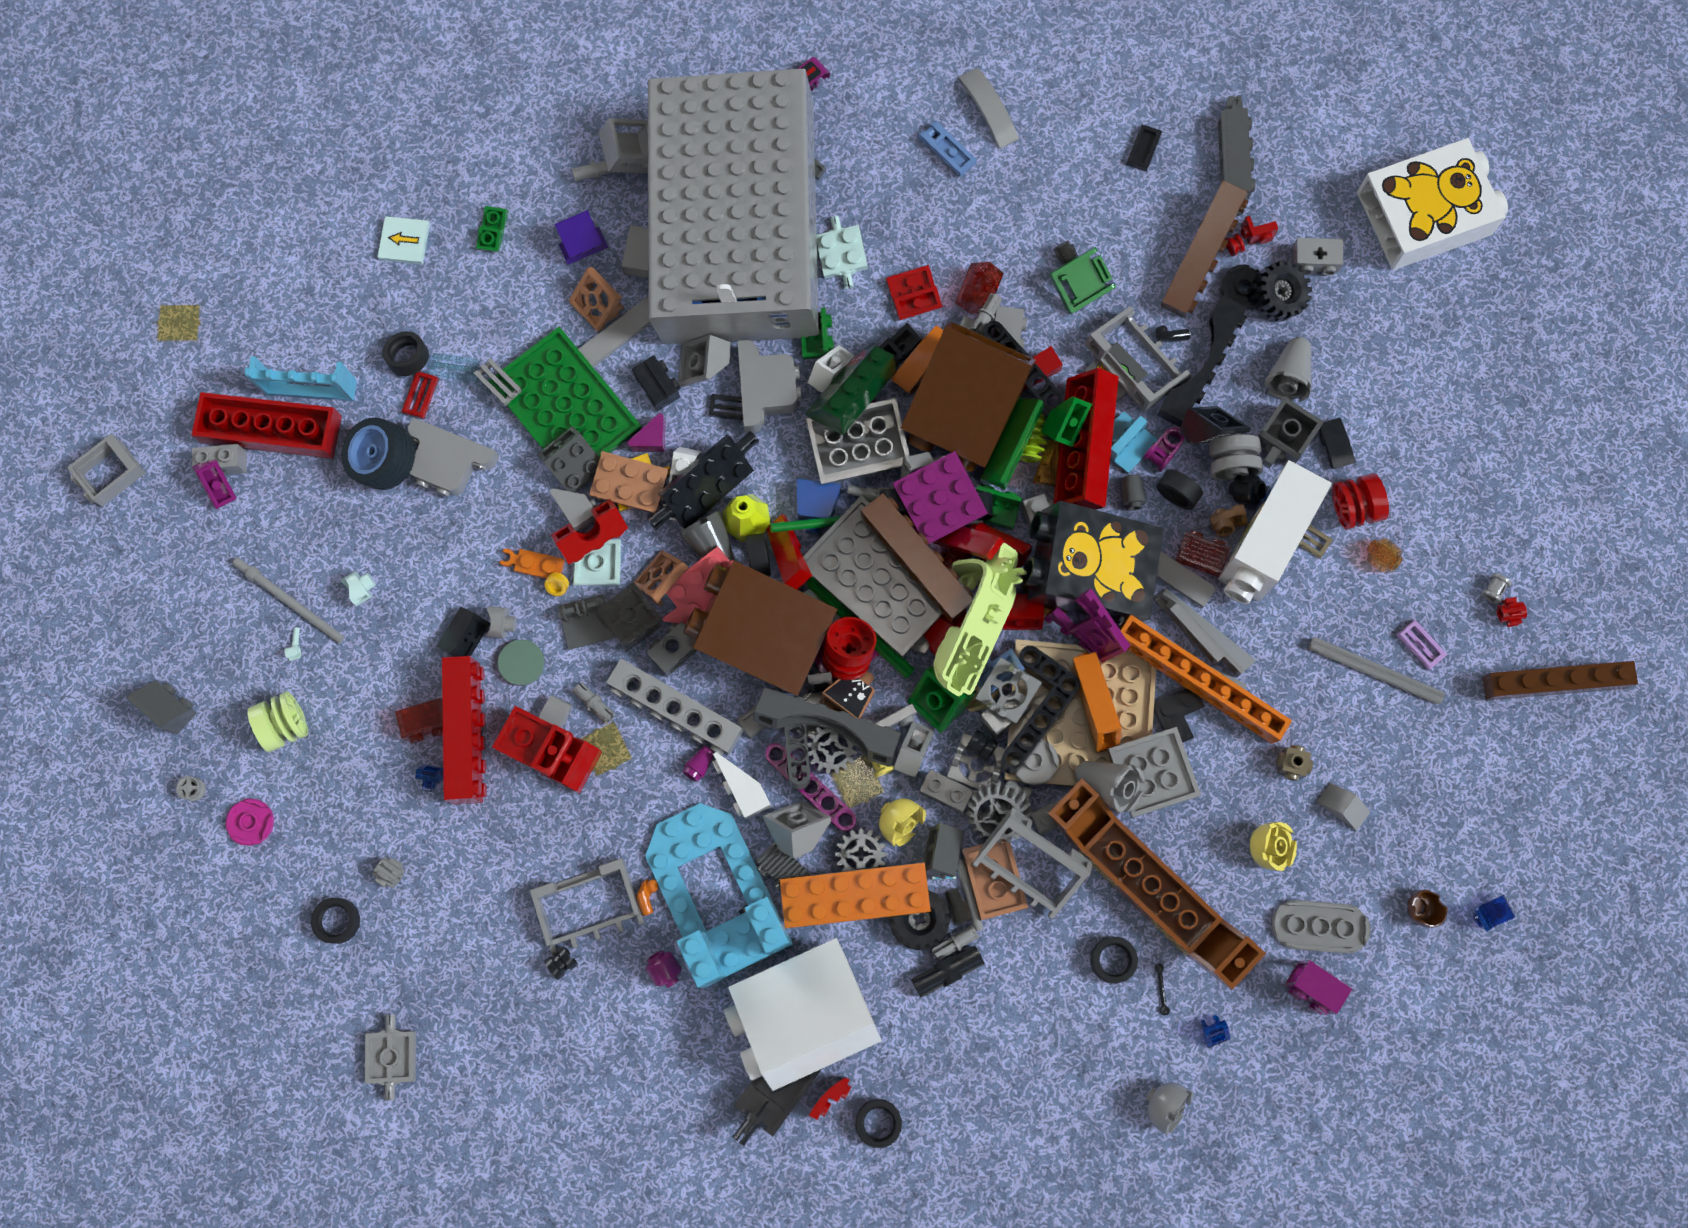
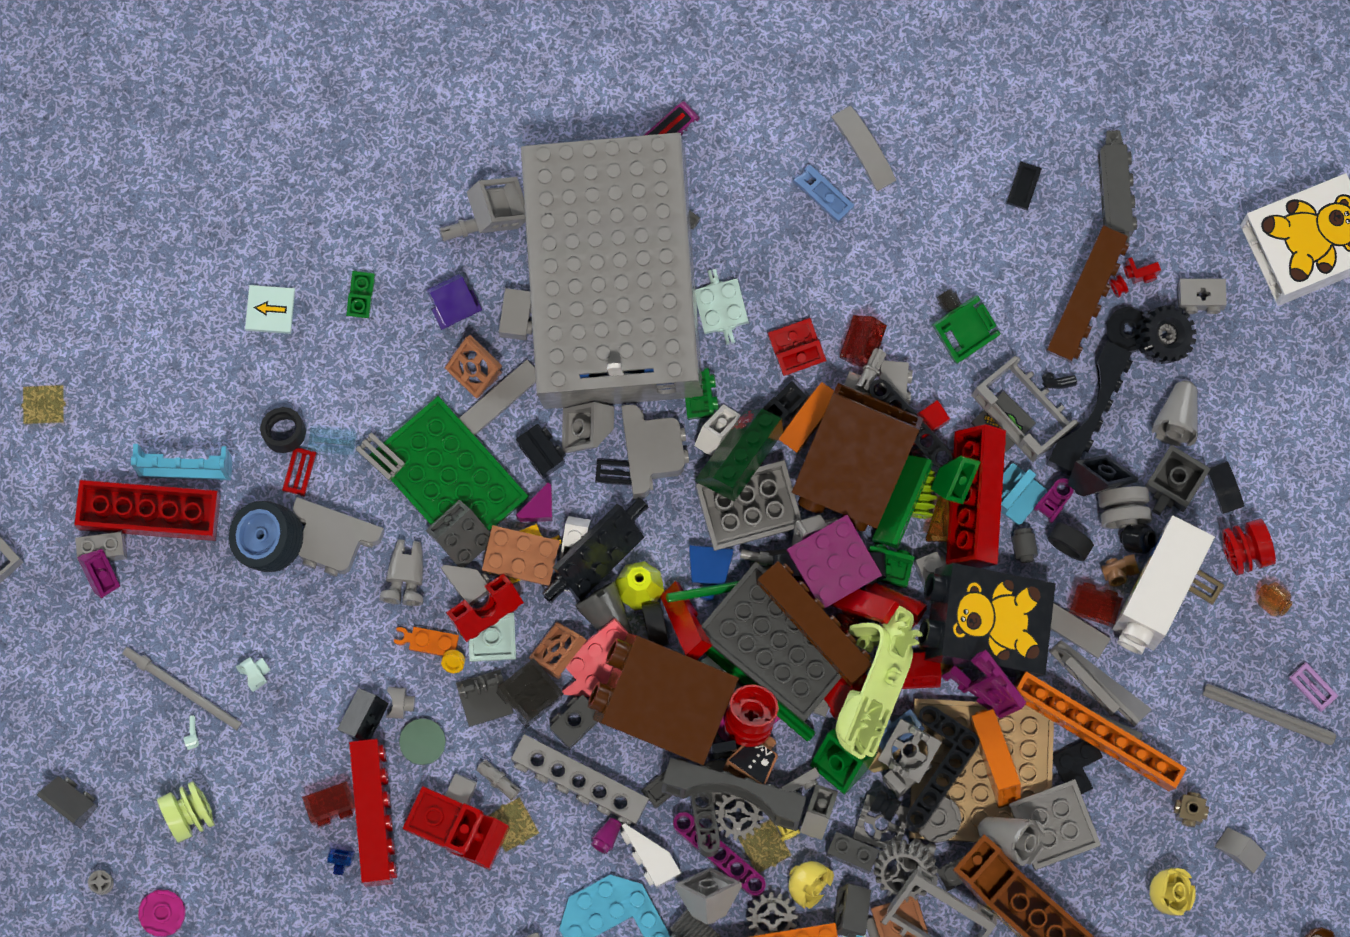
camera: 10 degrees left, 0 degrees up
(515, 492) = (404, 569): none -> light grey piece

